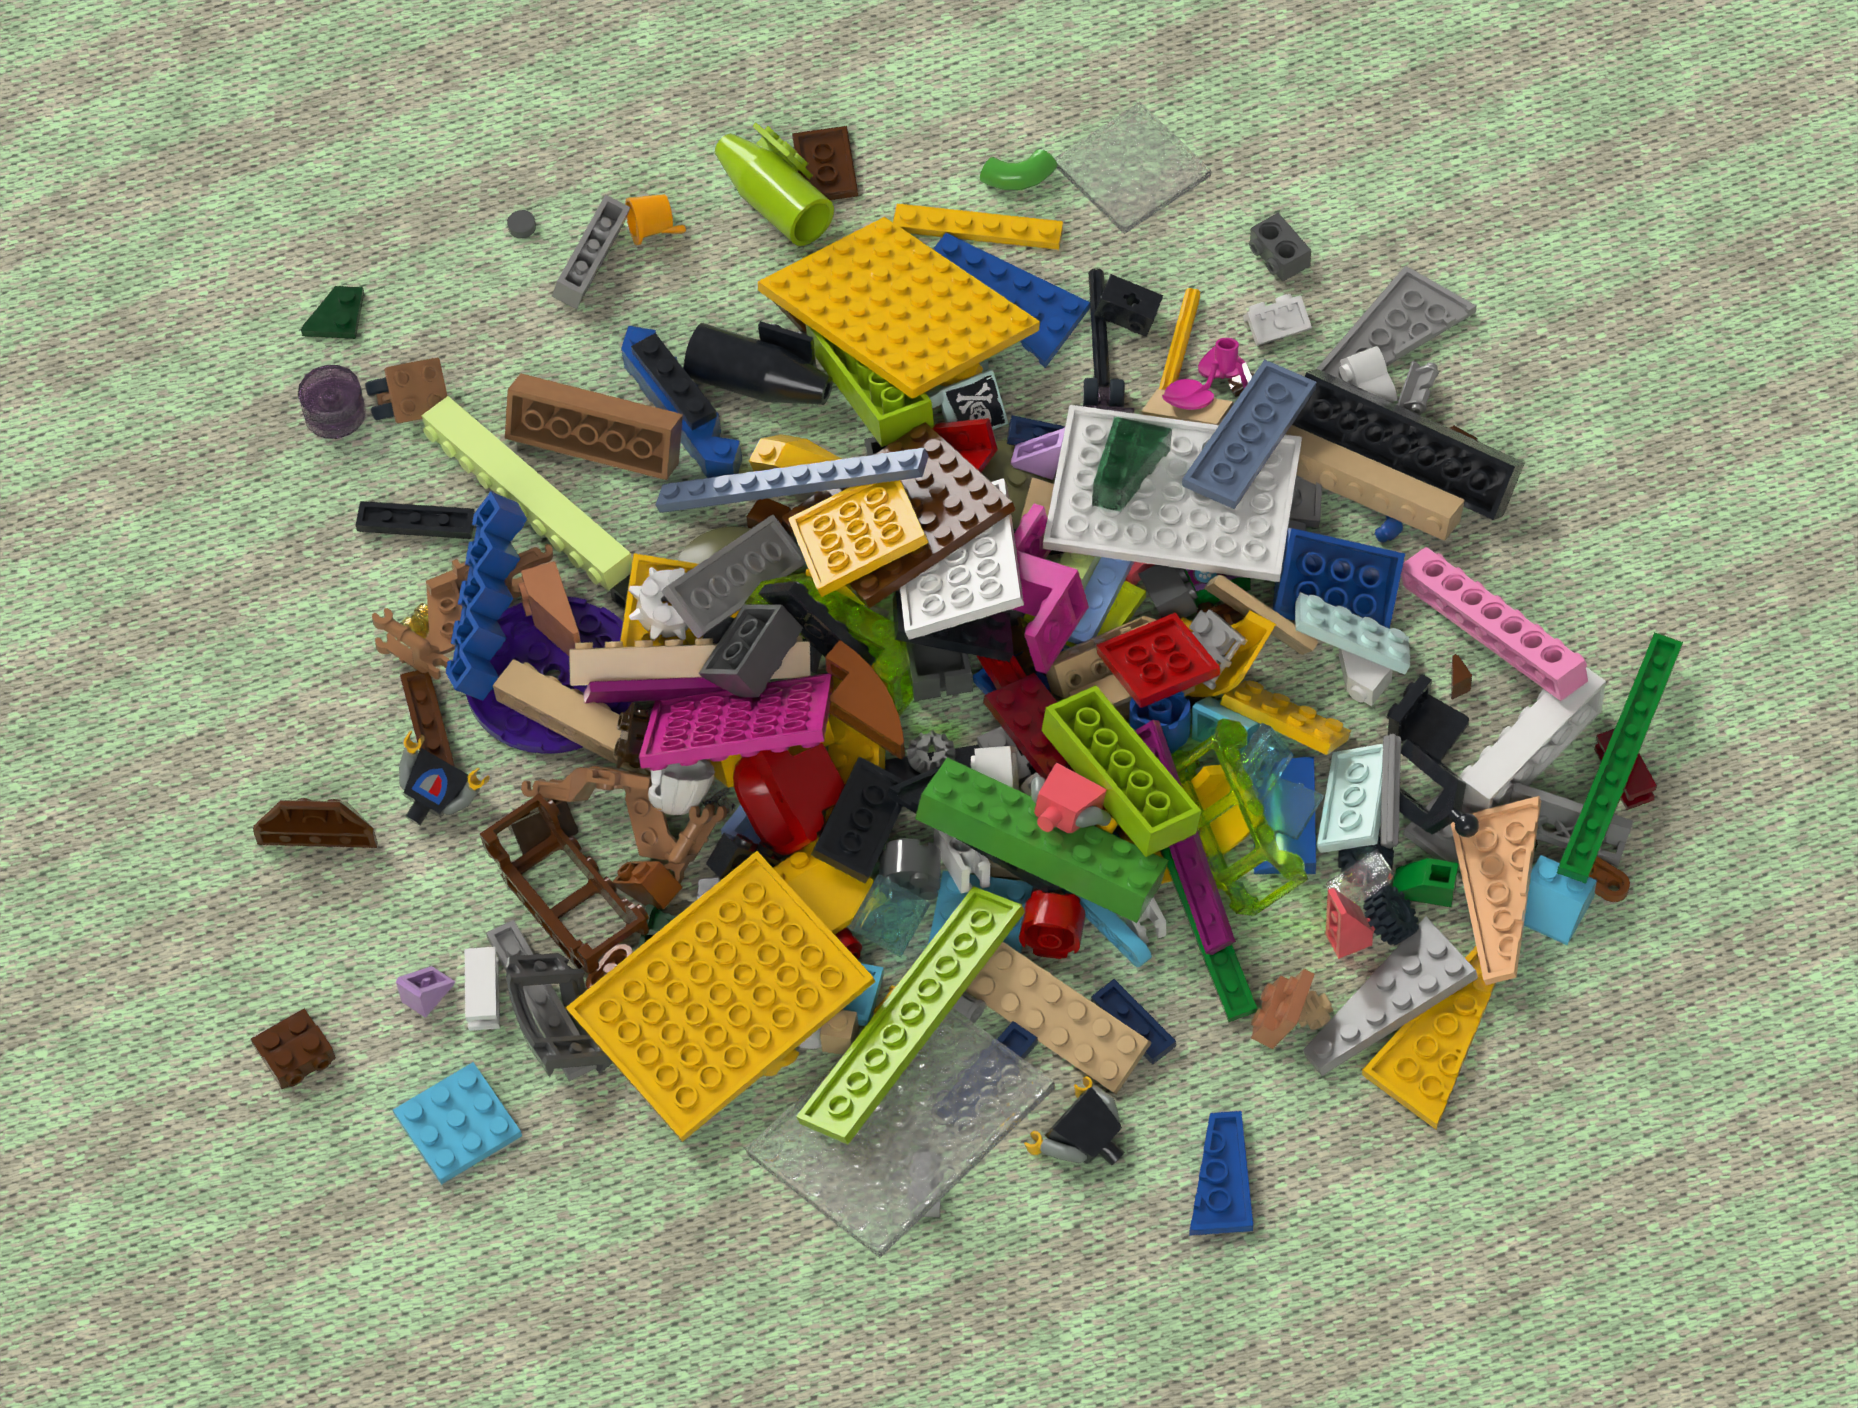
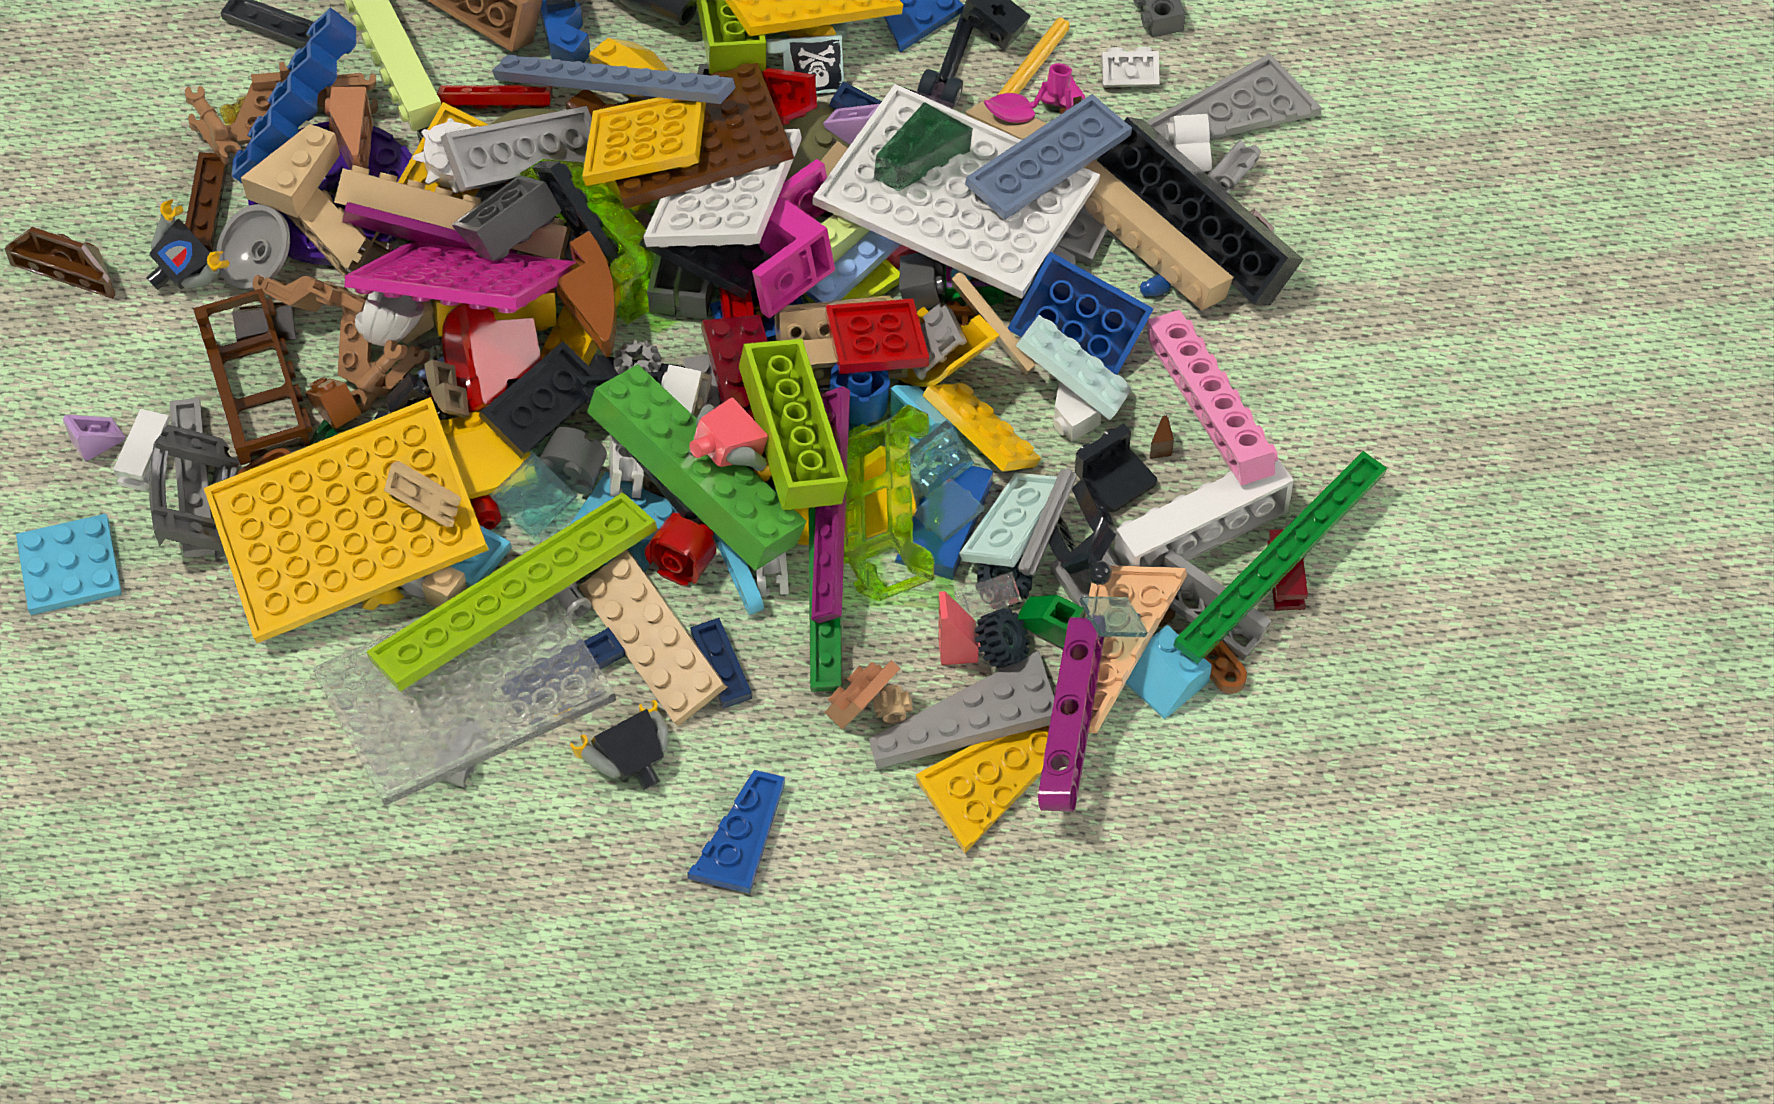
camera: 15 degrees right, 0 degrees up
(488, 748) = (254, 244): none -> light grey dish
(518, 667) = (293, 171): none -> tan wedge
(679, 526) = (505, 95): none -> red plate
(770, 844) = (444, 388): none -> dark tan slope
(793, 947) = (422, 493): none -> tan hinge
(1493, 863) = (1113, 616): none -> clear light blue piece
(1494, 983) = (1069, 733): none -> magenta beam

